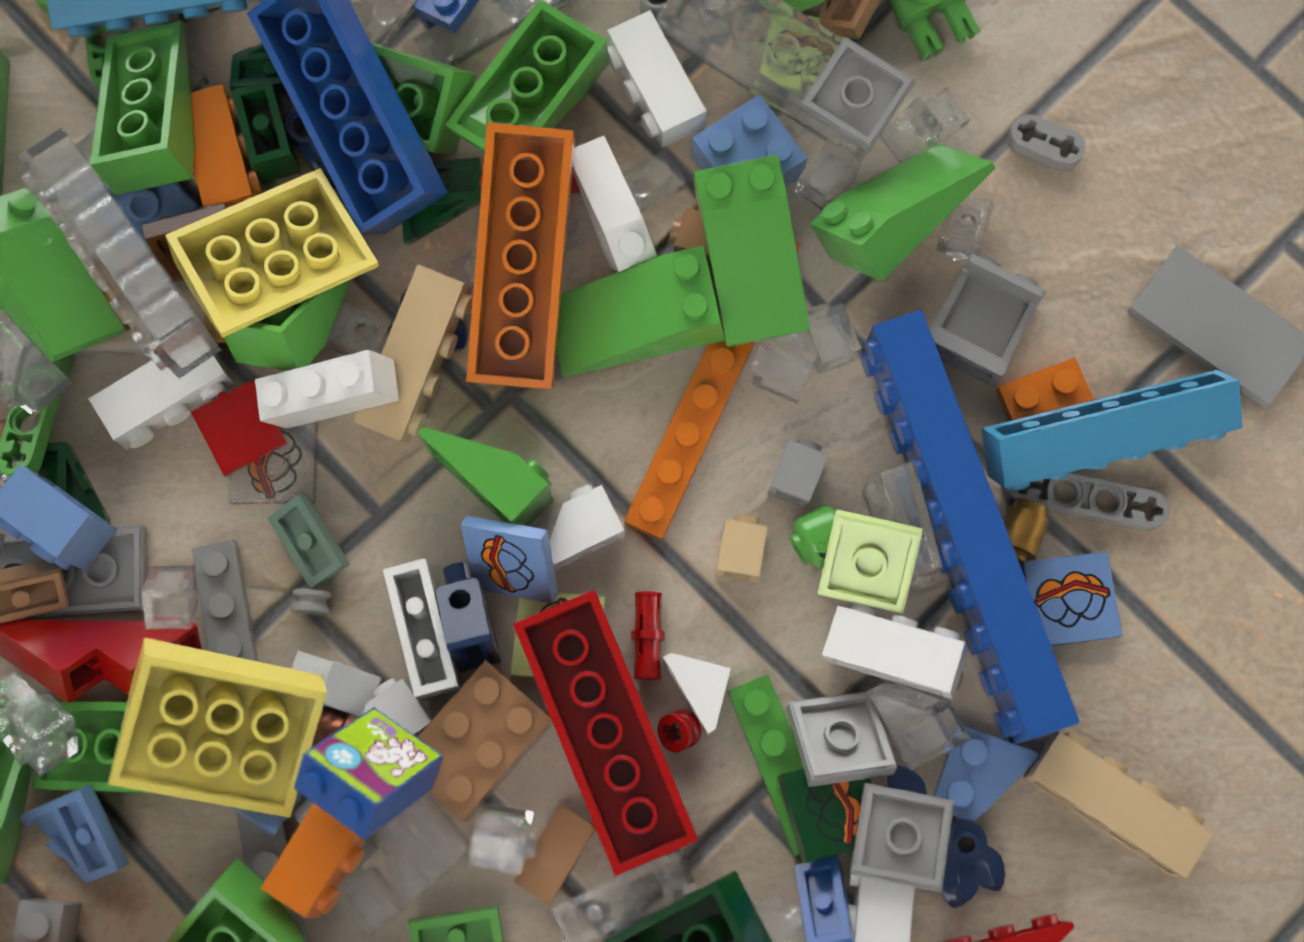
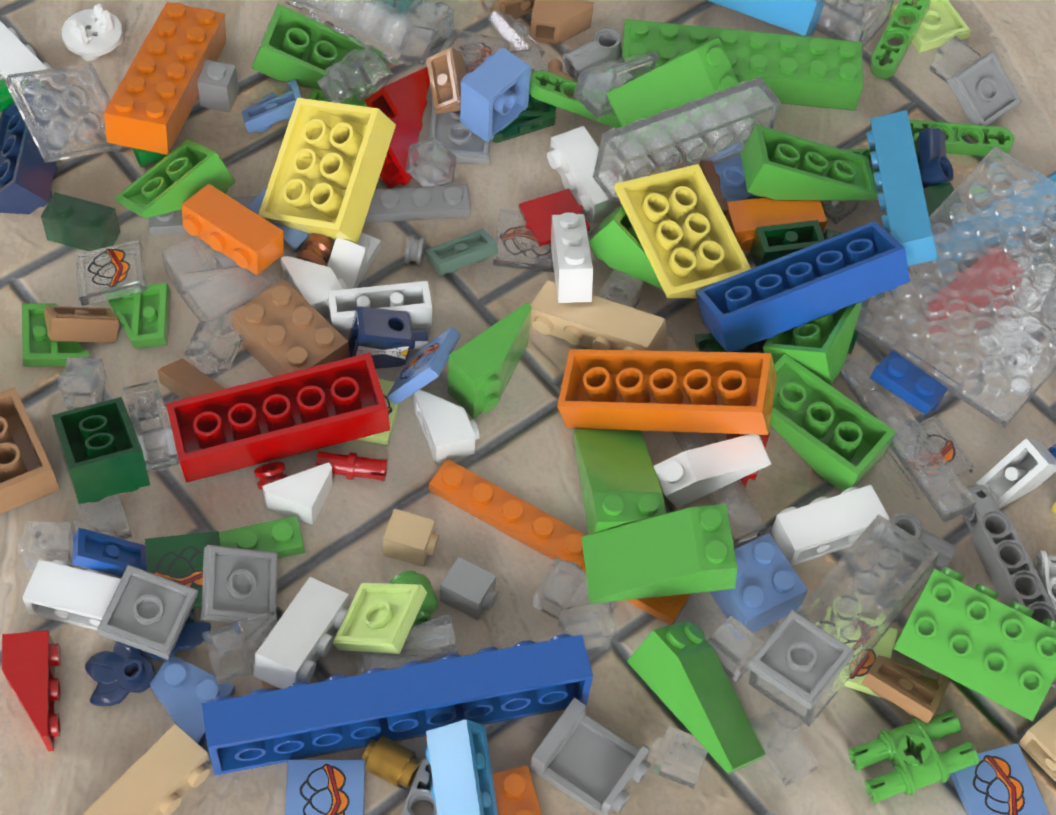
camera: 90 degrees right, 20 degrees down
(368, 772) = (273, 242): brick -> none

